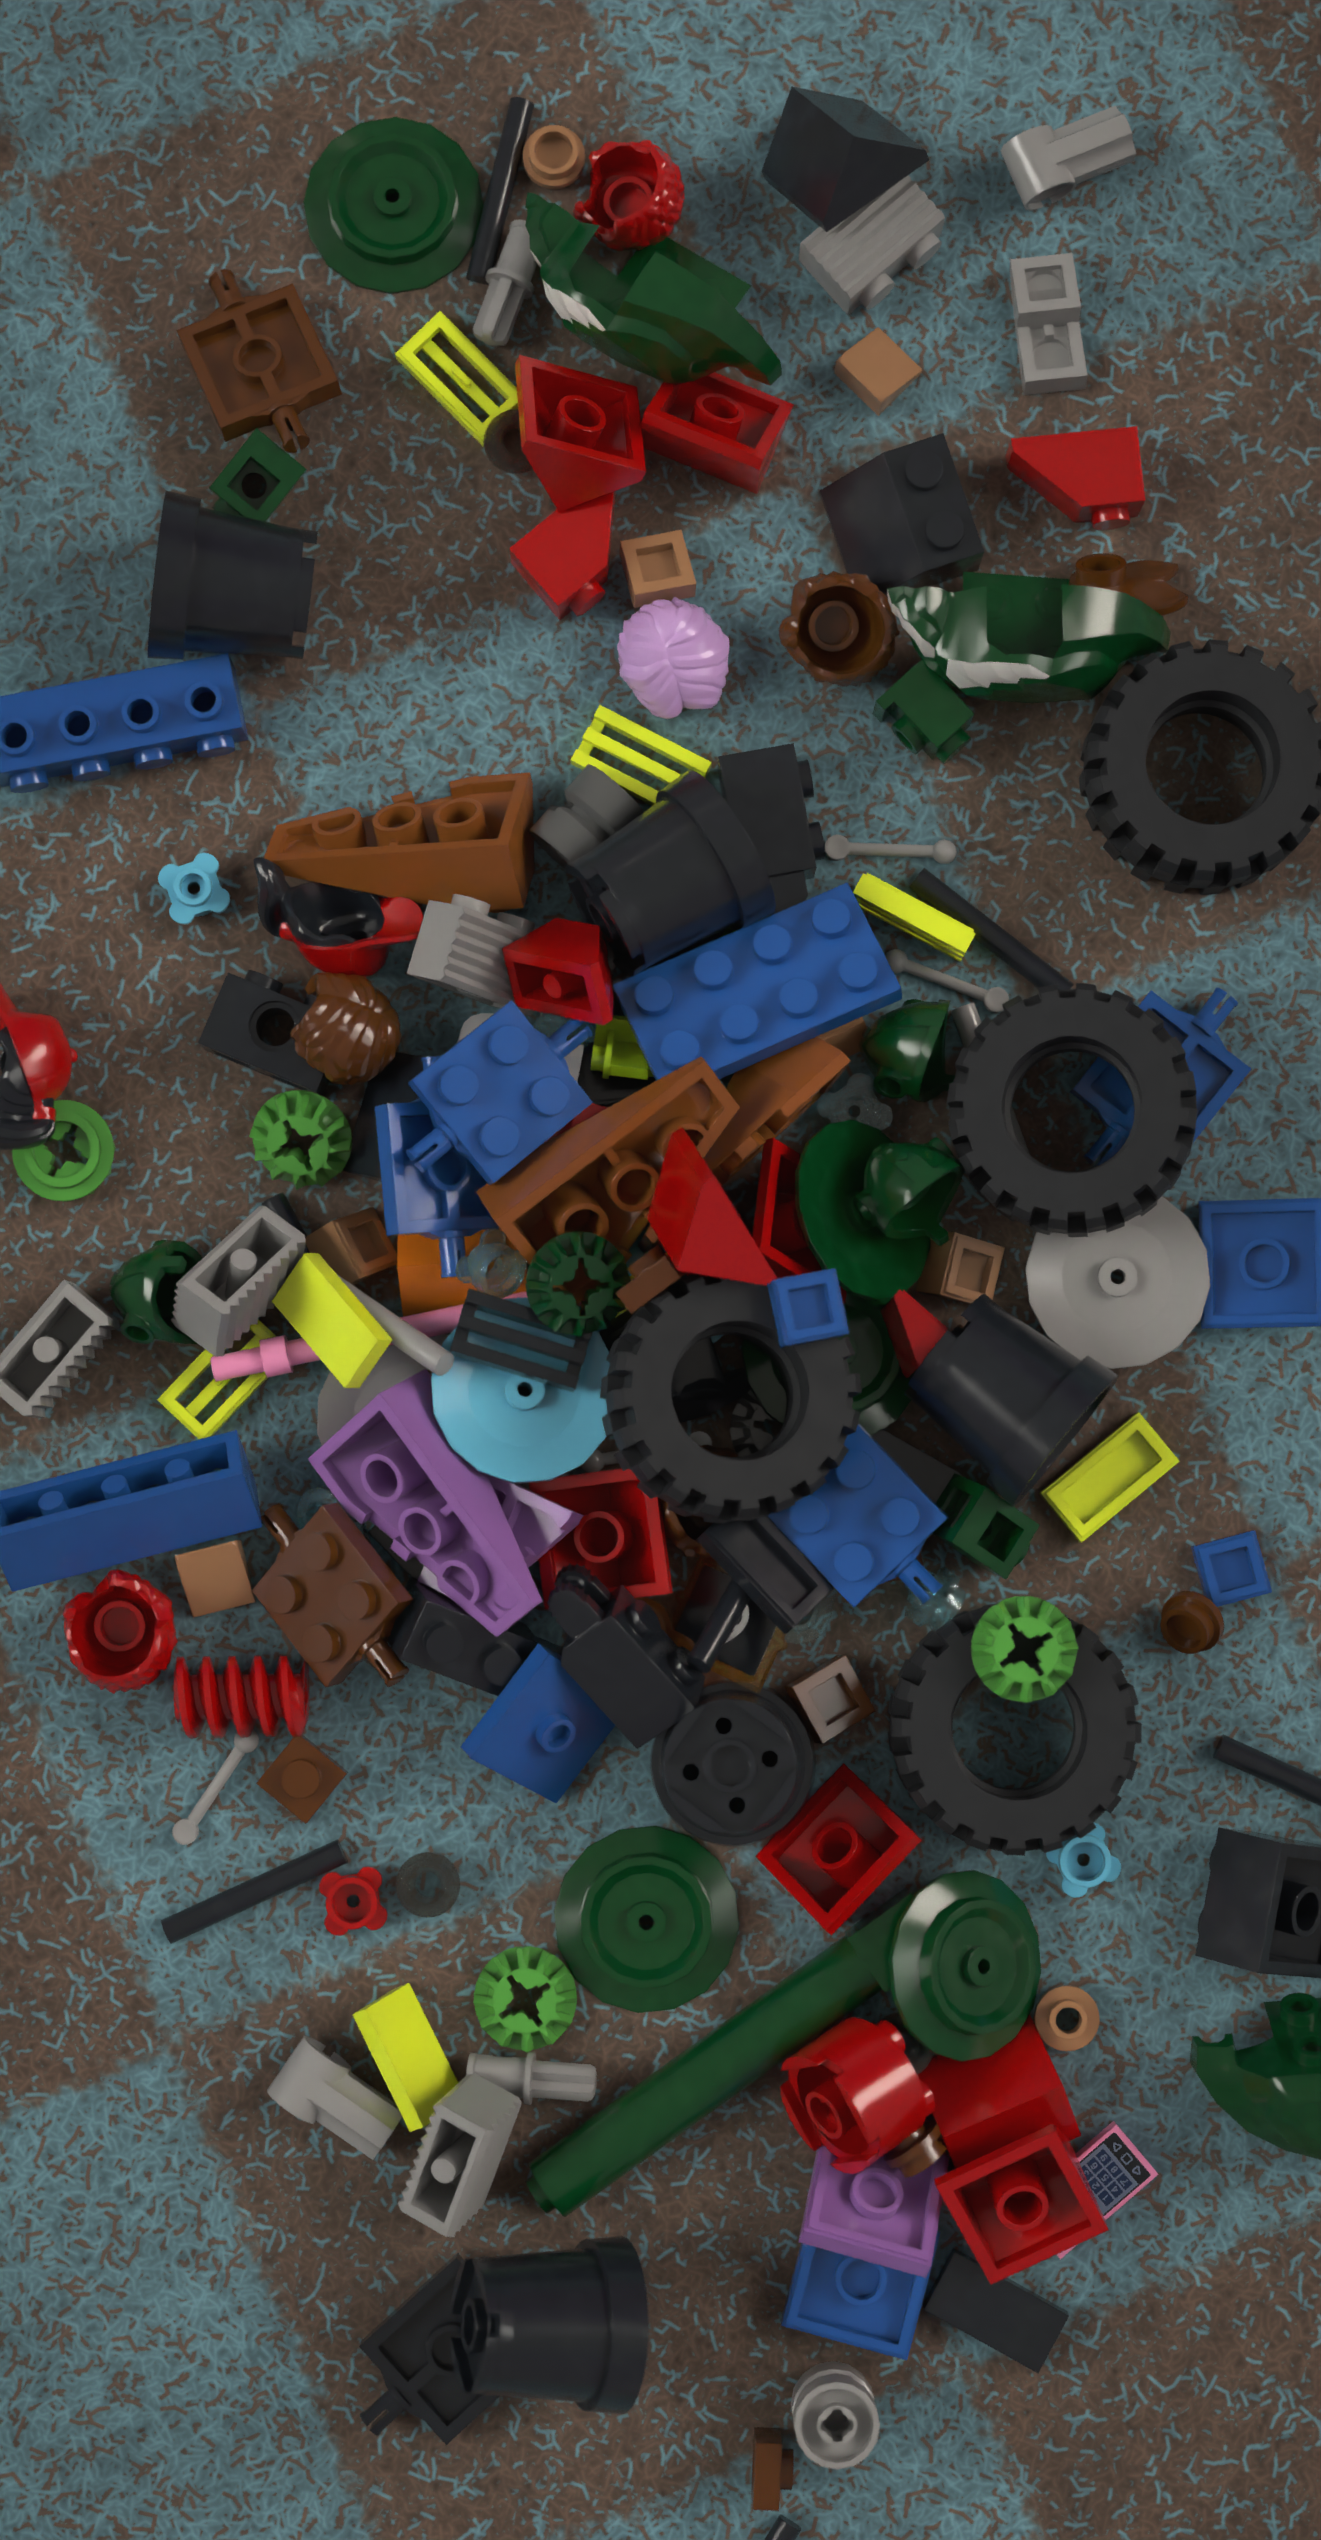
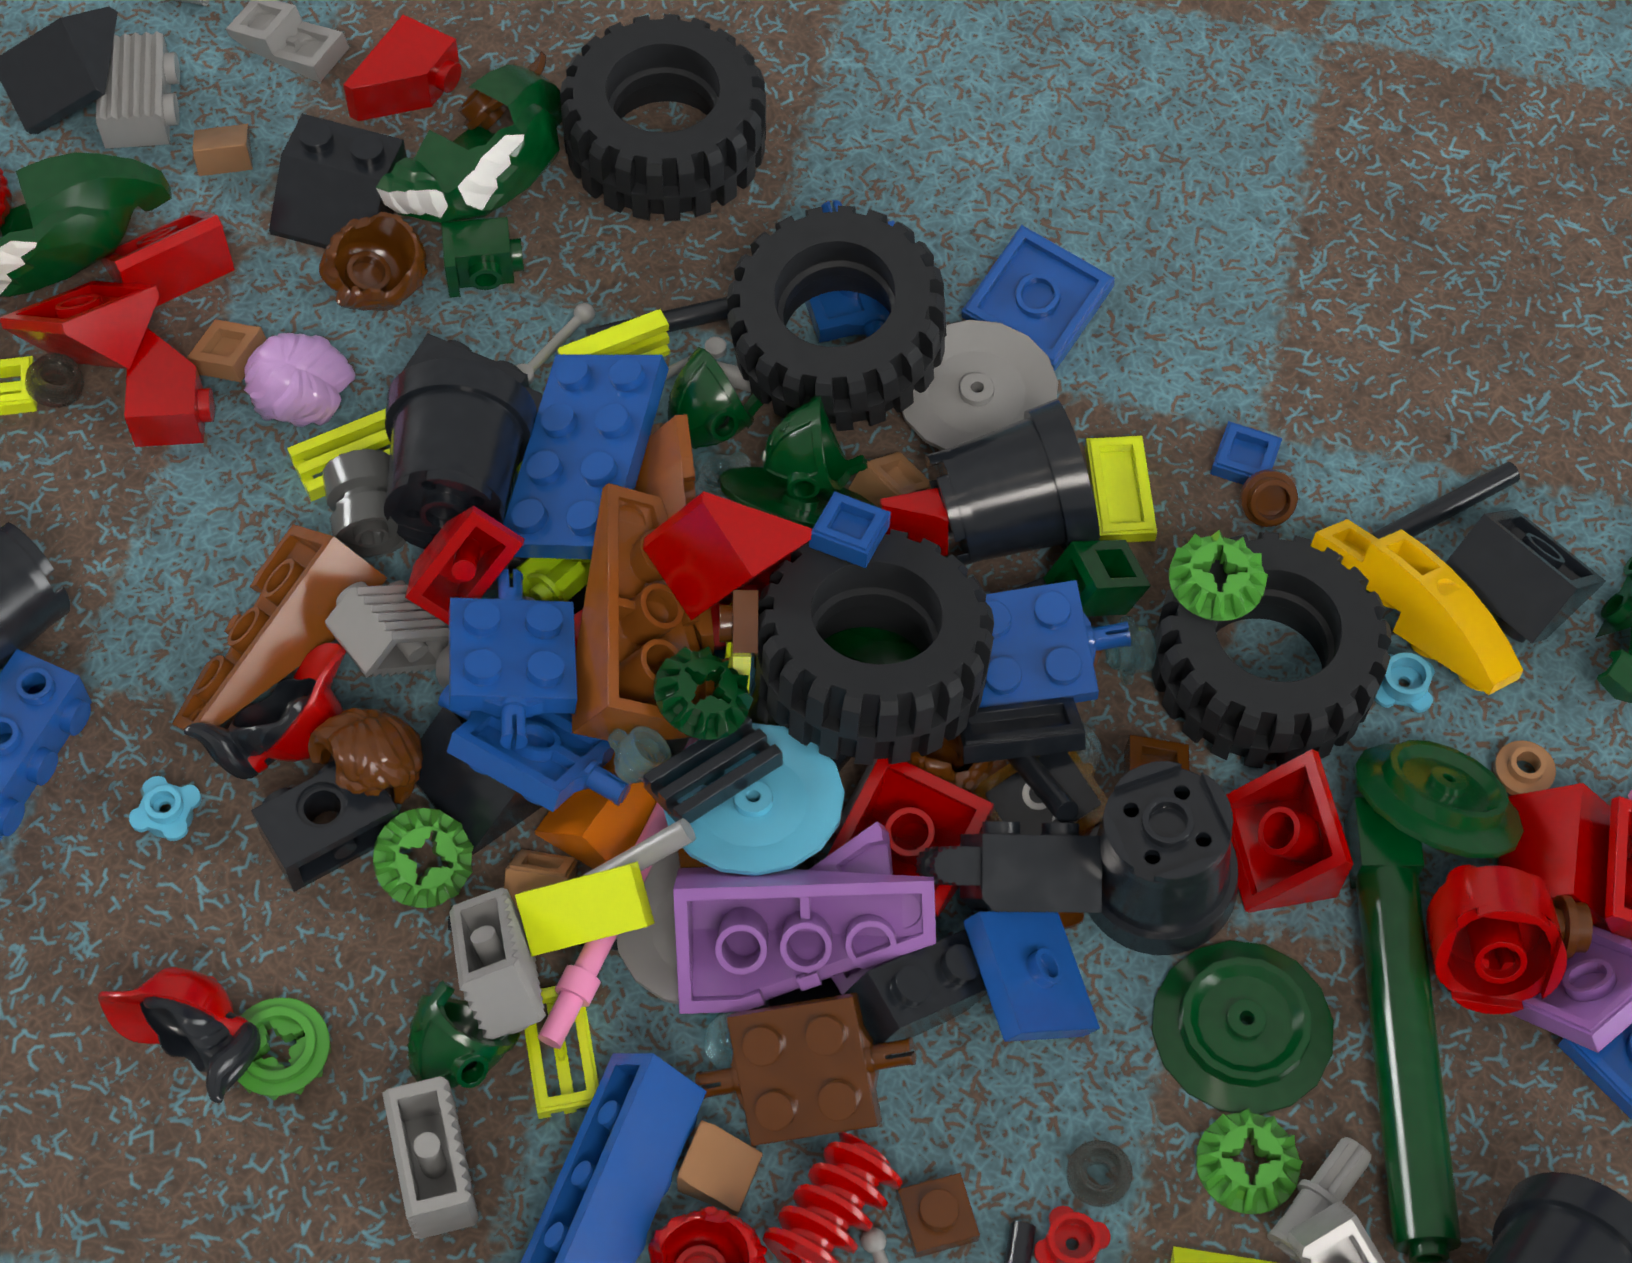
camera: 55 degrees left, 25 degrees down
(1179, 1824) = (1436, 606): none -> yellow slope

